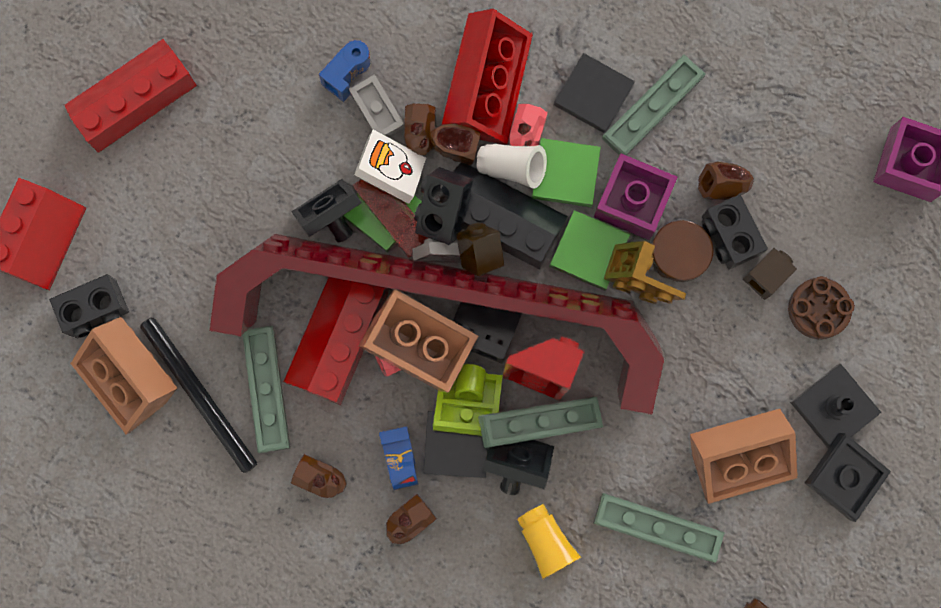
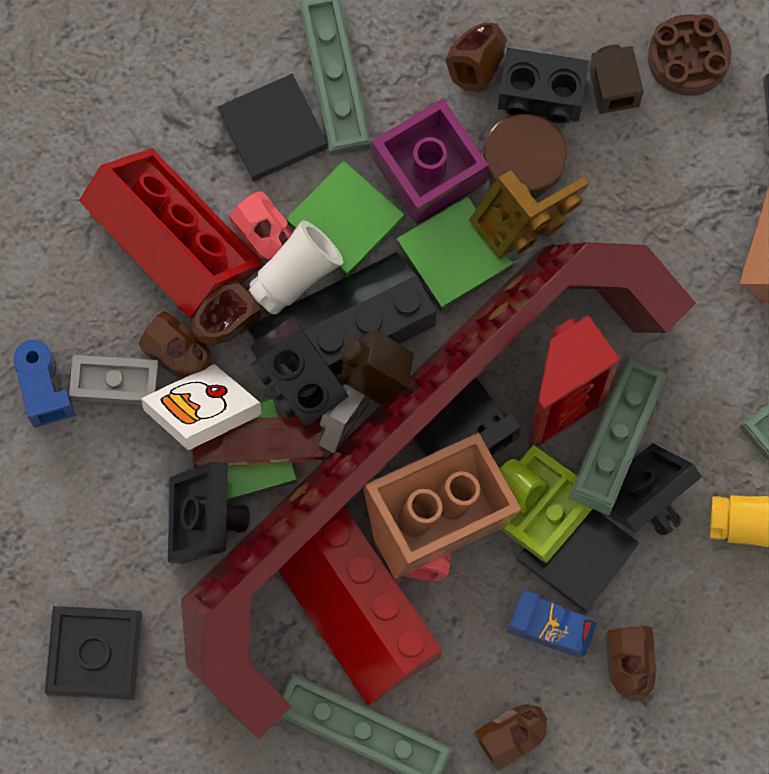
camera: 55 degrees left, 5 degrees down
(211, 206) = (93, 653): none -> black tile

